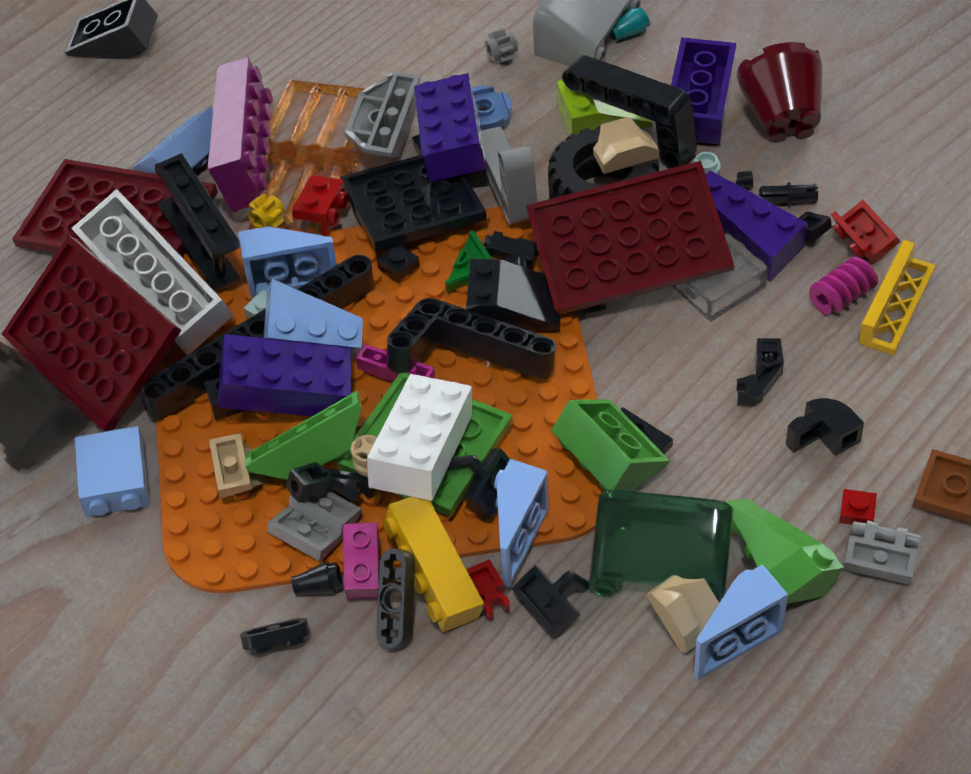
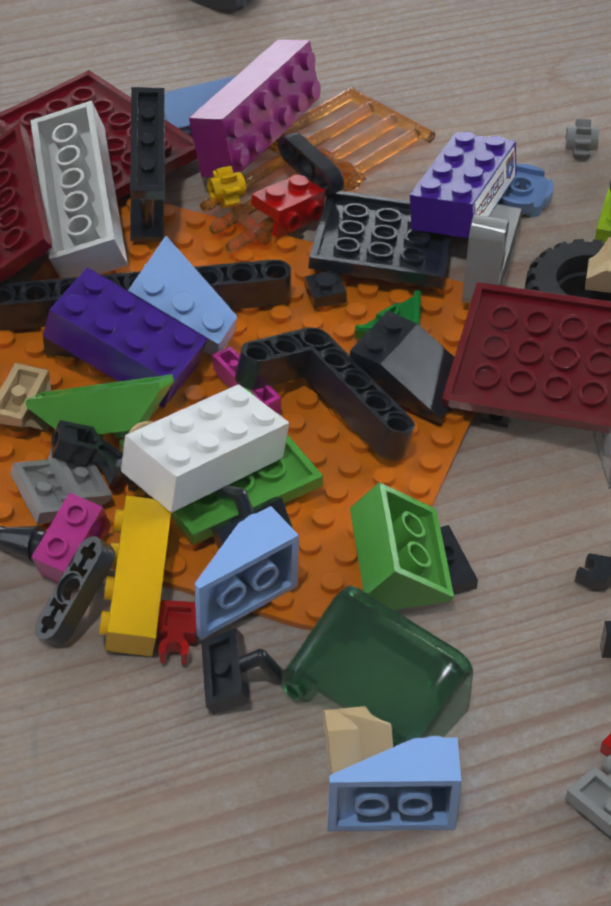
camera: 25 degrees right, 5 degrees down
(284, 256) = (207, 229): light blue slope -> none
(297, 158) = (310, 162): none -> black beam
(384, 115) = (408, 150): light grey wedge -> none
(516, 251) = (442, 323): black piece -> none
(792, 557) = (503, 748): bright green wedge -> none

